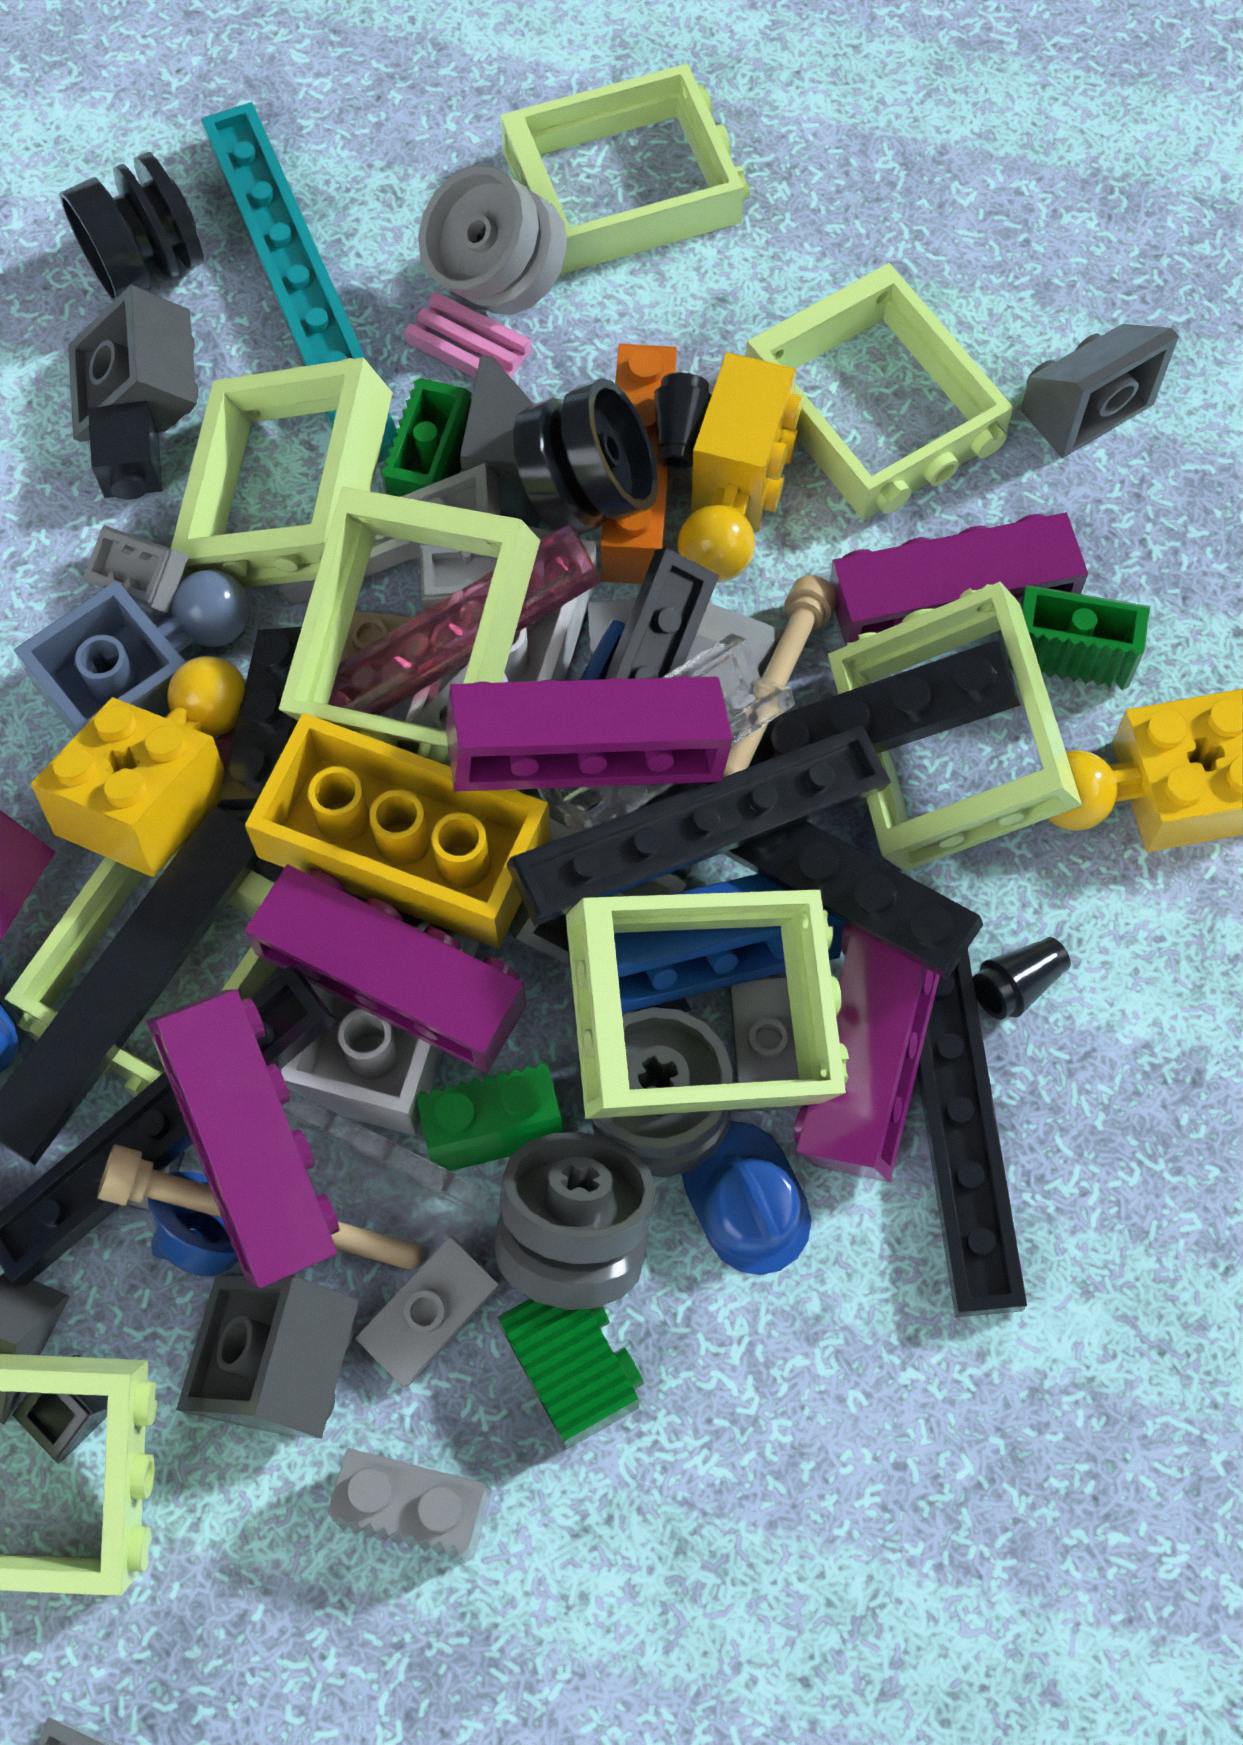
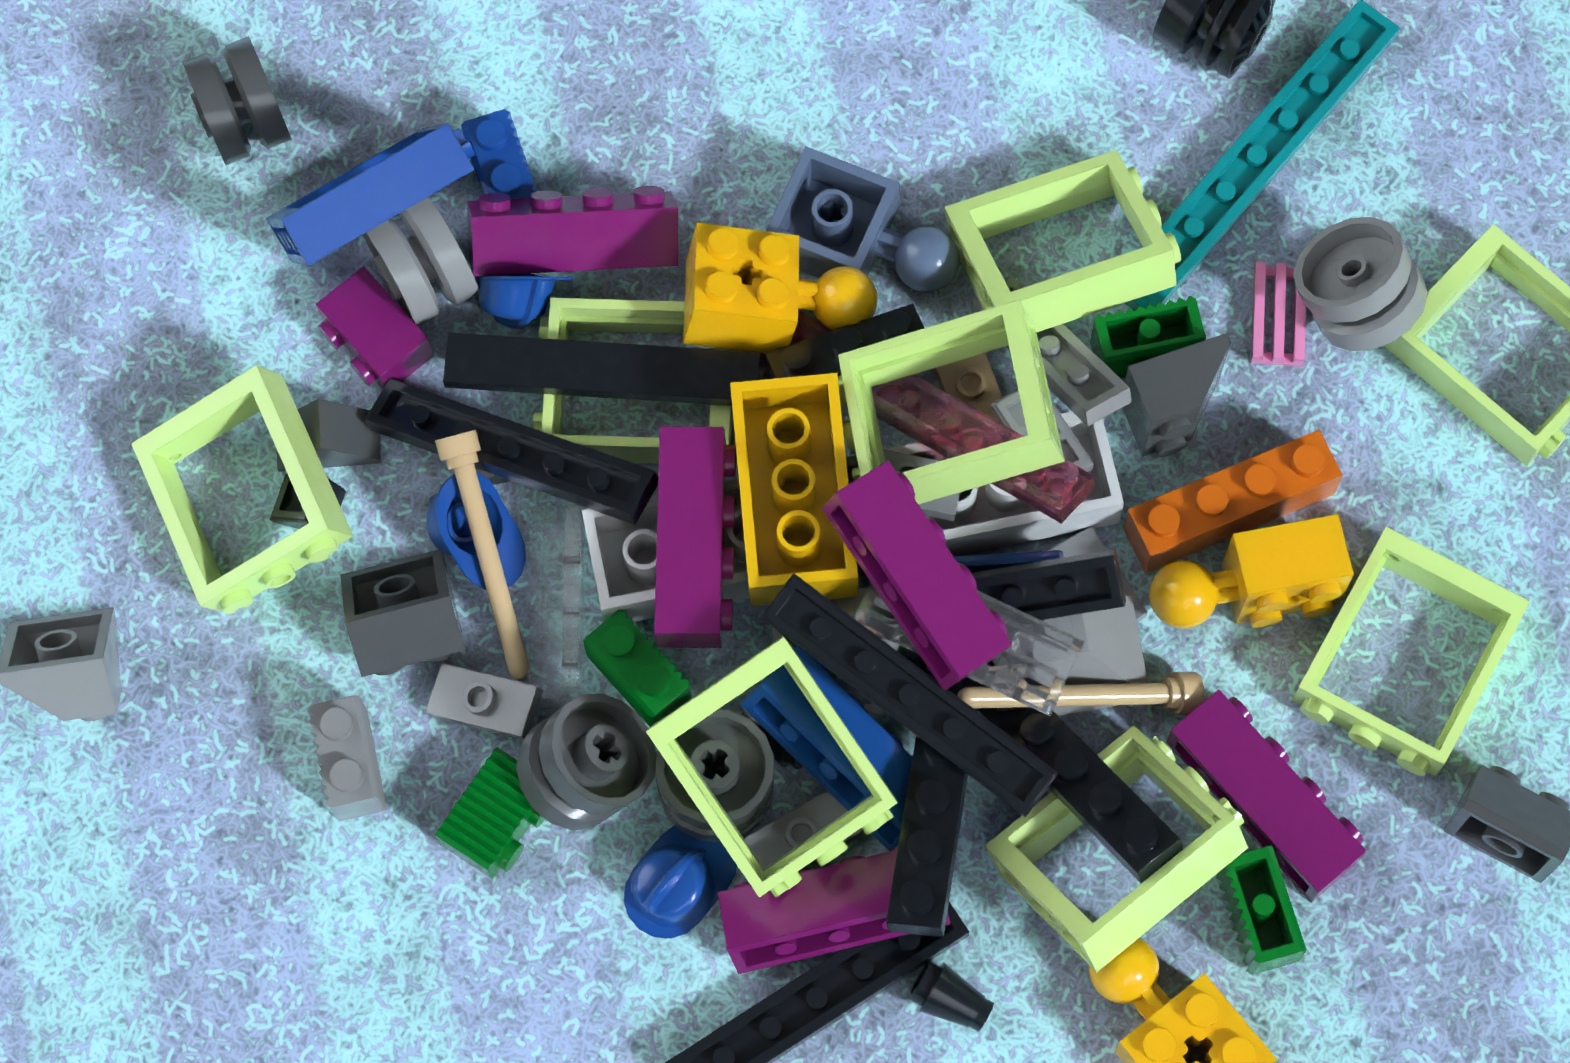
camera: 65 degrees right, 5 degrees up
(125, 450) = (1027, 121): black brick -> none
(134, 354) = (1102, 85): dark grey slope -> none
(141, 566) = (927, 187): light grey plate -> none
(244, 1137) = (518, 508): magenta brick -> none
(585, 457) = (1171, 458): black wheel -> none
(679, 417) = (1266, 507): black cone -> none

